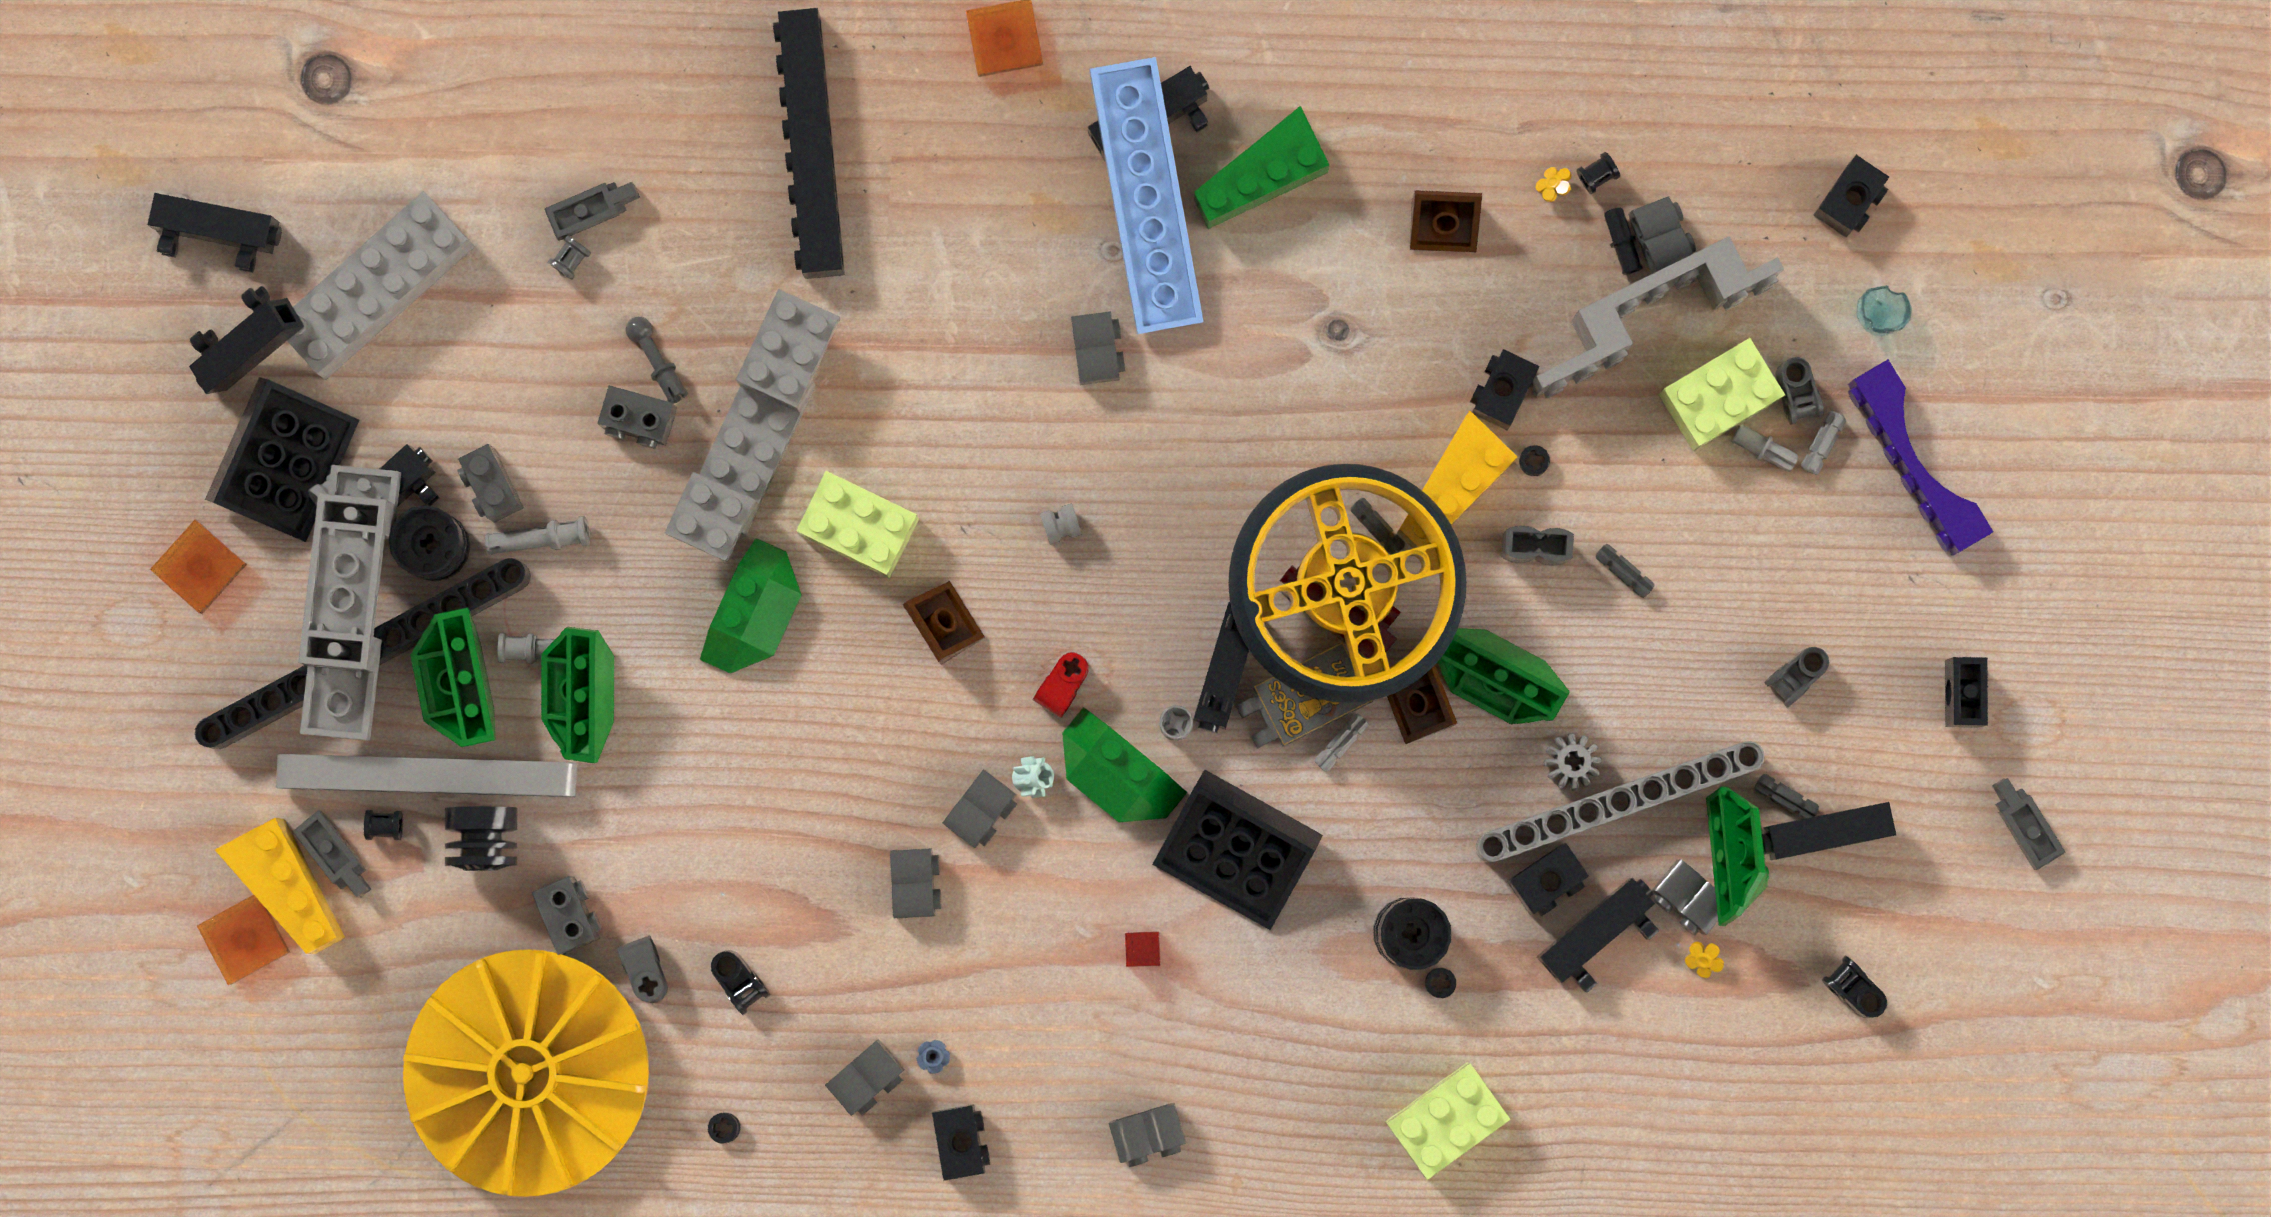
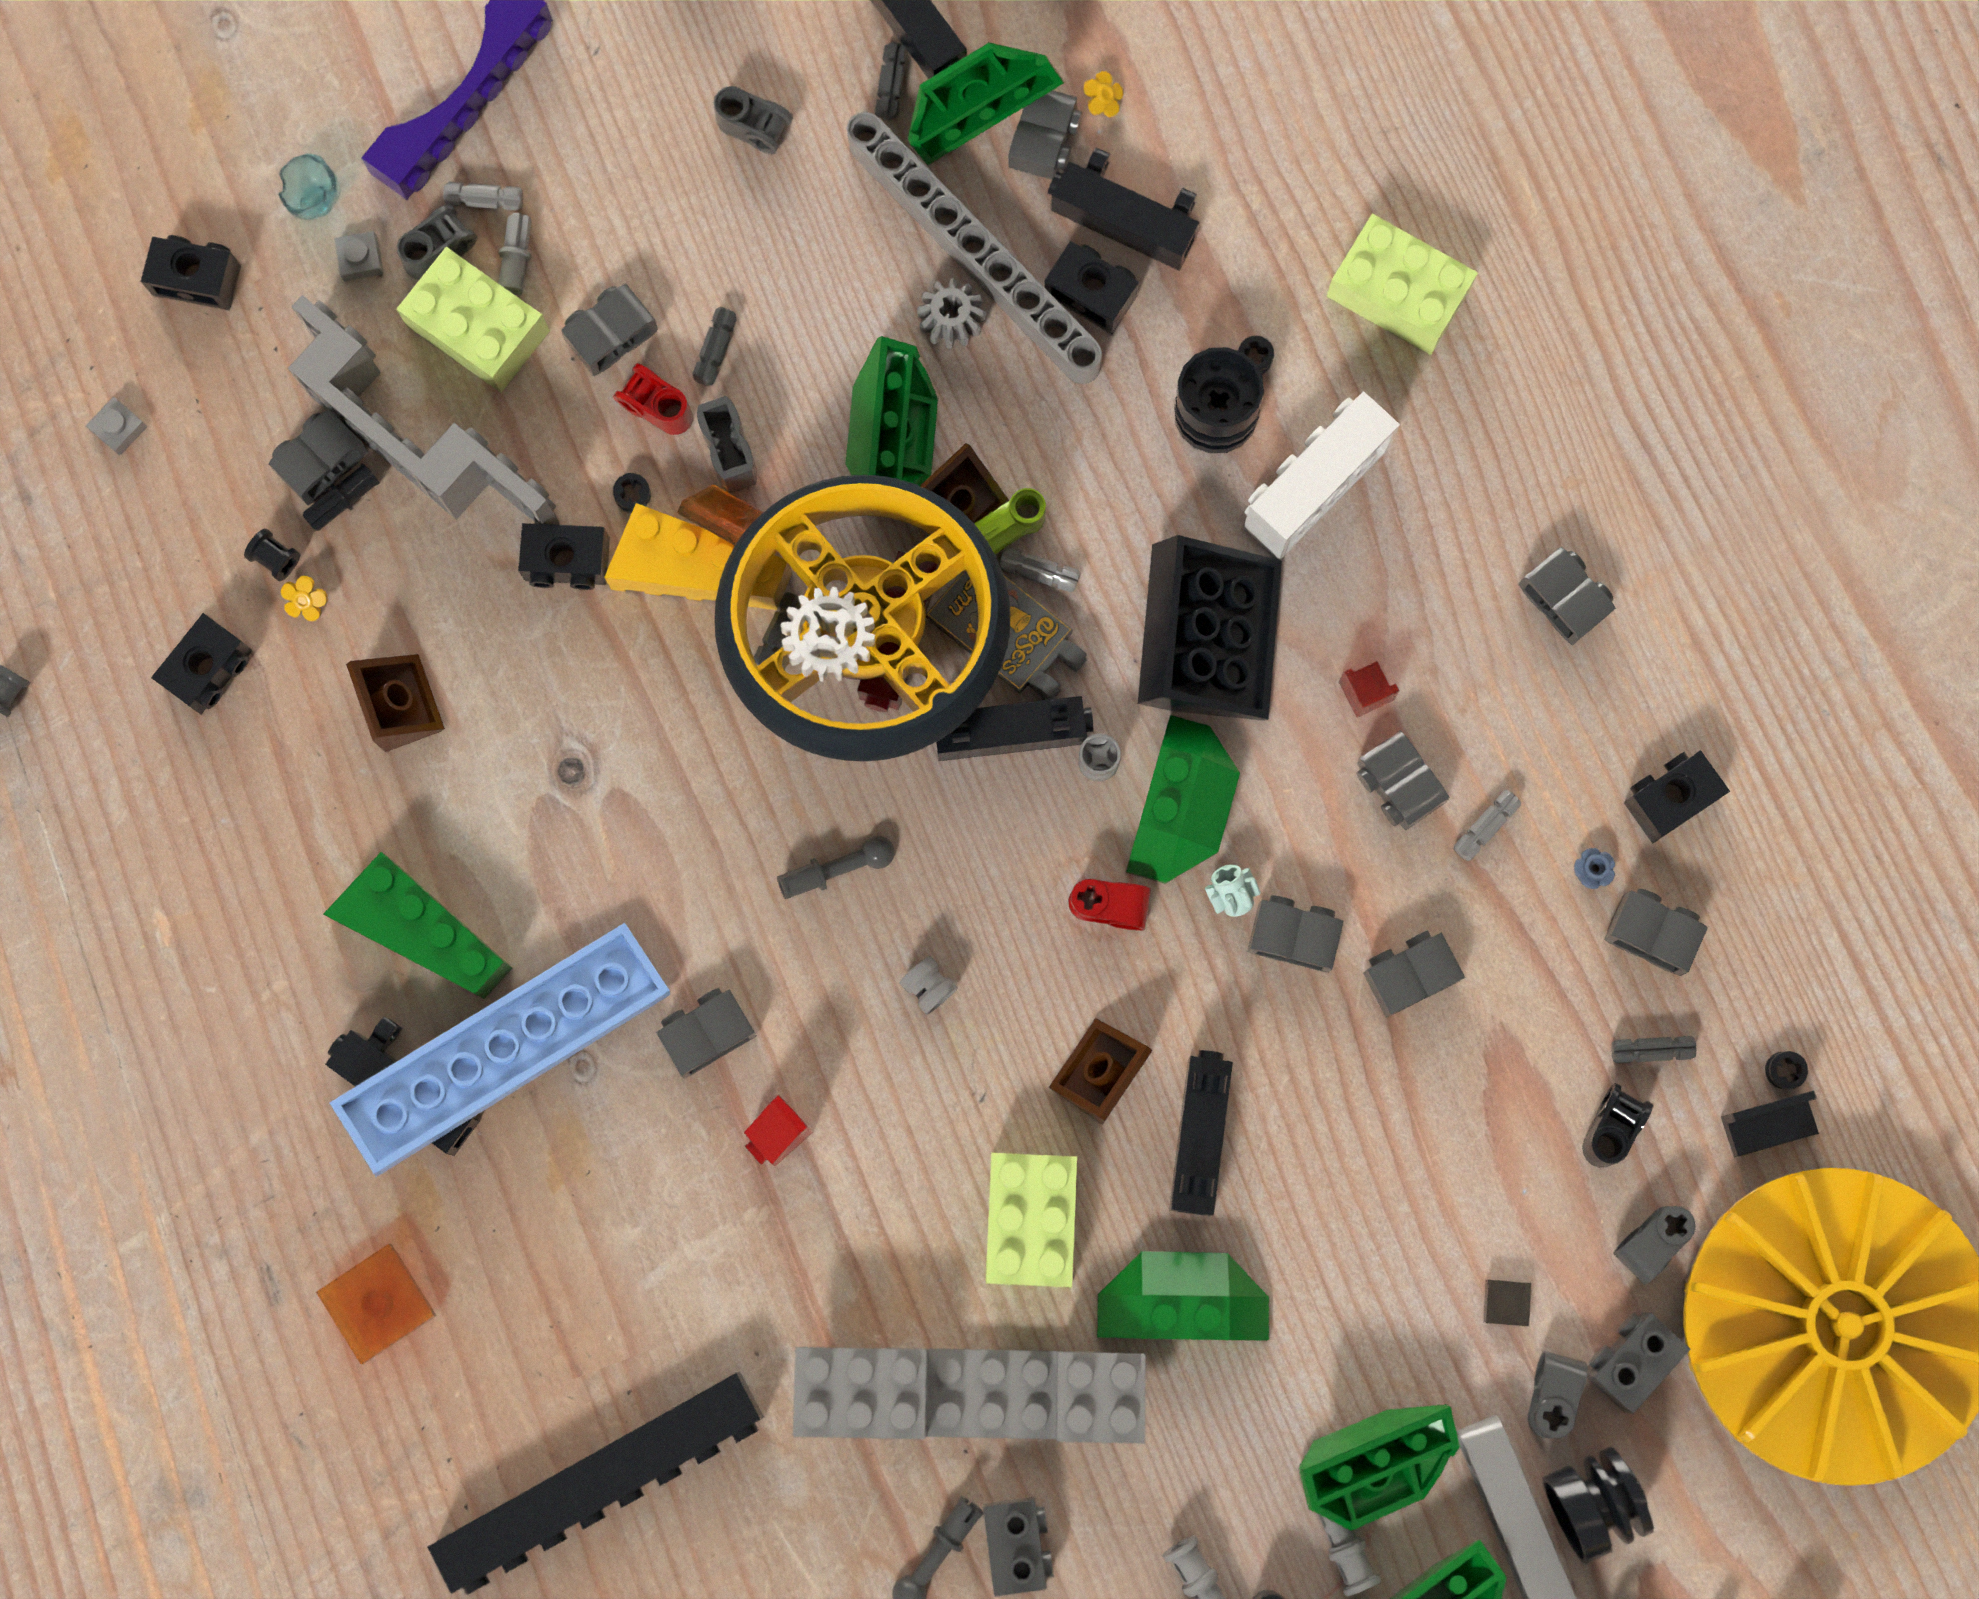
camera: 115 degrees left, 5 degrees down
(574, 850) = (1558, 1388): none -> dark grey piece
(649, 843) = (1507, 1303): none -> clear smoke tile
(690, 1096) = (1770, 1124): none -> black panel
(781, 1036) = (1653, 1049): none -> dark grey axle
(865, 674) = (1201, 1134): none -> black brick
(1000, 369) = (776, 1132): none -> red slope
(1000, 991) = (1487, 825): none -> light grey axle
(1060, 941) = (1402, 781): none -> dark grey brick
(1178, 528) = (876, 853): none -> dark grey pin
(1318, 983) = (1320, 475): none -> white brick
(1338, 562) = (815, 646): none -> white gear
(1385, 729) = (1006, 526): none -> lime piece
(1480, 520) = (719, 513): none -> clear orange plate
(1532, 70) = (180, 668): none -> black brick
(1603, 503) = (650, 396): none -> red piece
(1672, 495) = (609, 328): none -> dark grey brick
(1753, 95) = (116, 426): none -> light grey plate
(1814, 329) = (358, 256): none -> light grey plate

